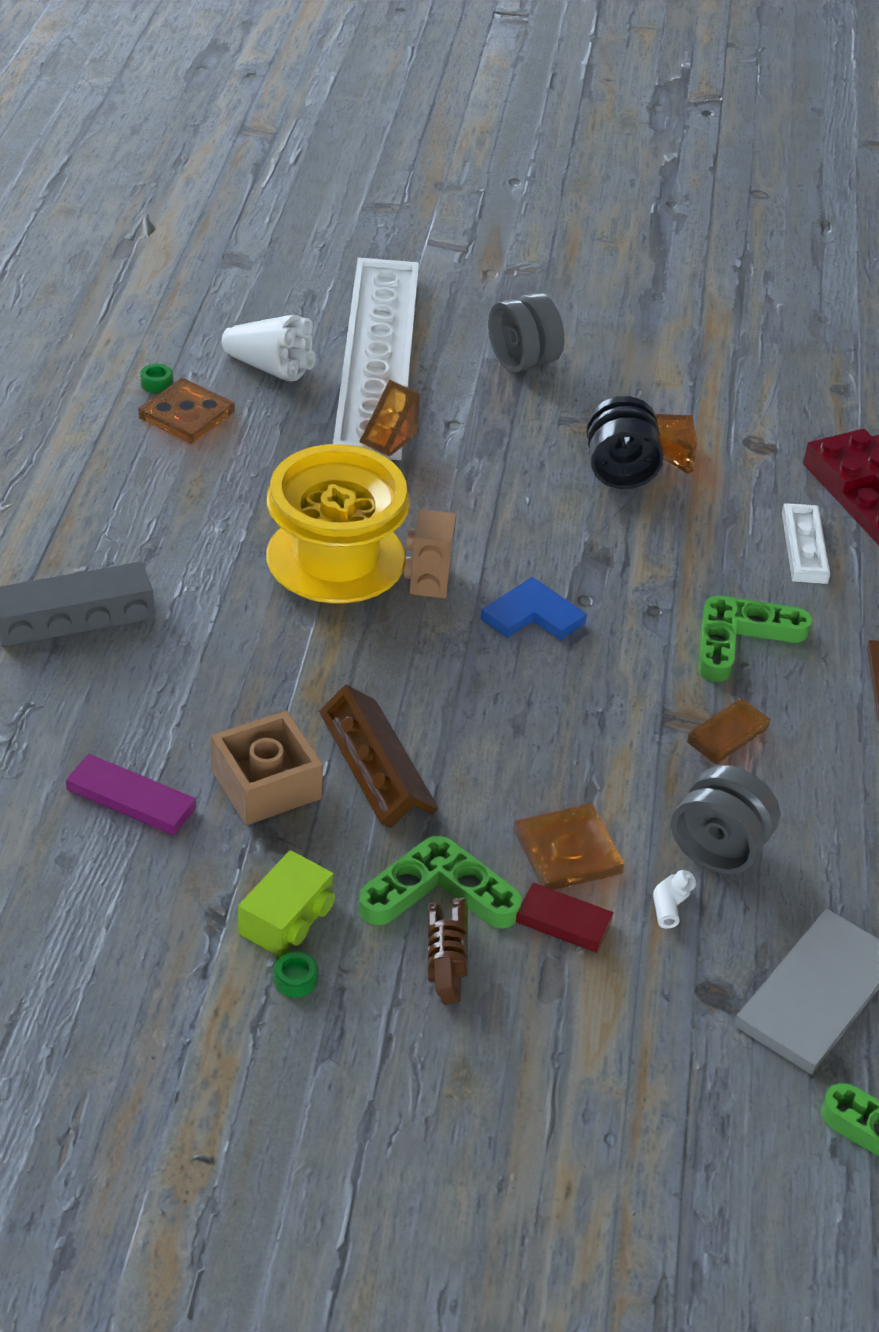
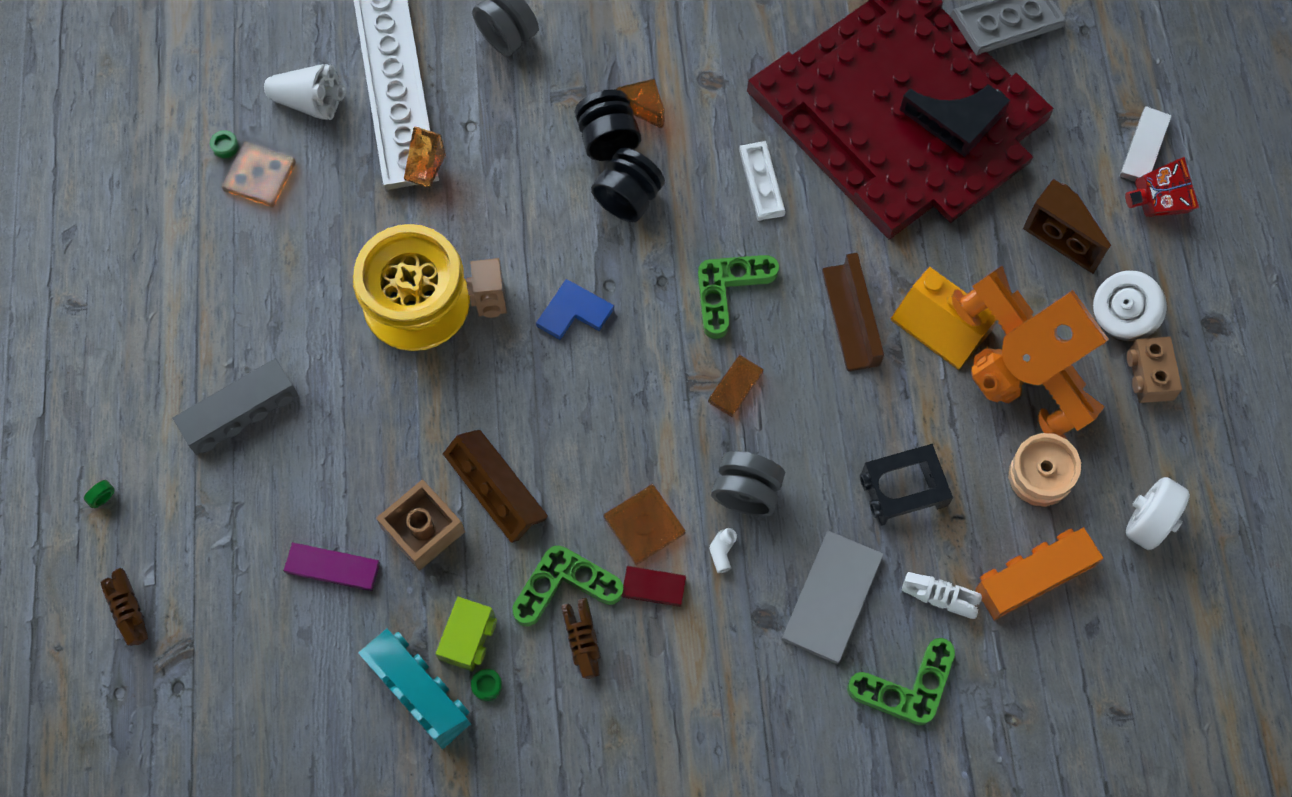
camera: 10 degrees left, 25 degrees up
(196, 949) = (415, 688): none -> teal wedge
(635, 499) = (628, 185): none -> black wheel

